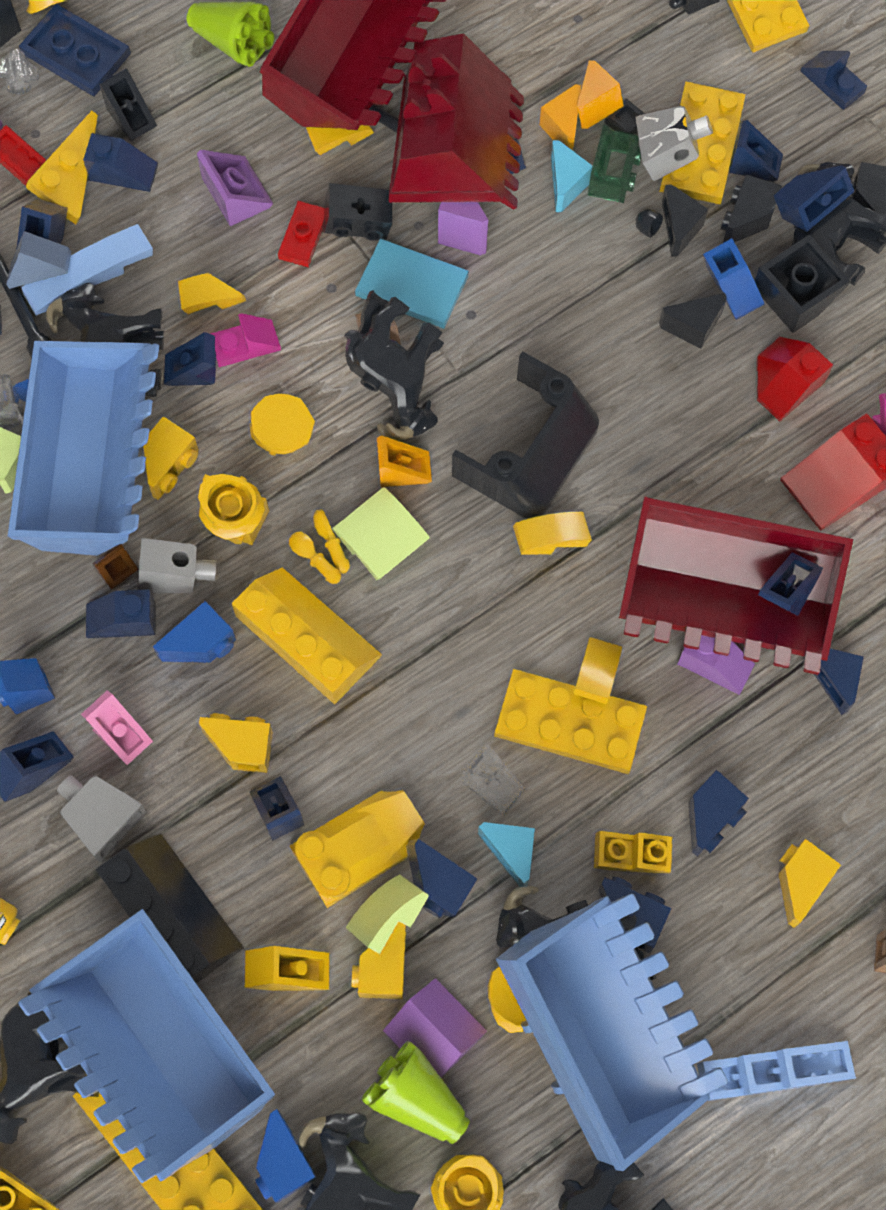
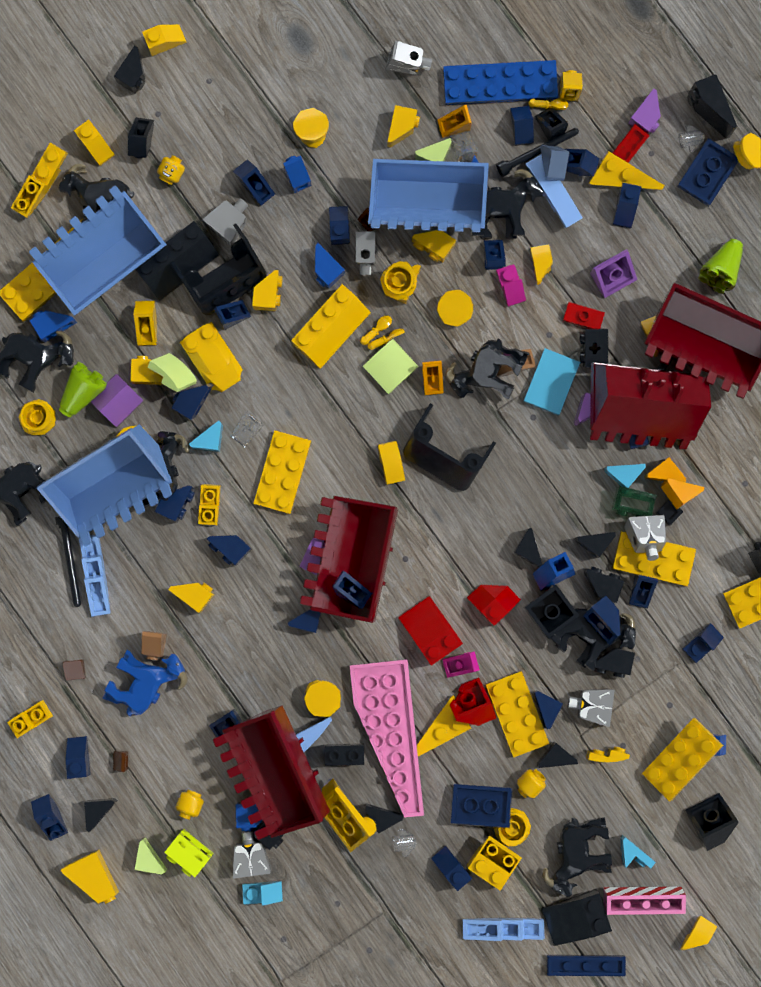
camera: 90 degrees right, 15 degrees up
(116, 727) = (274, 227): bright pink slope -> none
(126, 105) = (666, 207): black slope -> none
(209, 813) = (226, 281): none -> black windscreen
(598, 670) = (309, 486): yellow slope -> none
(649, 222) = (595, 523): black hinge -> none
(683, 1133) = (69, 560): none -> black piece

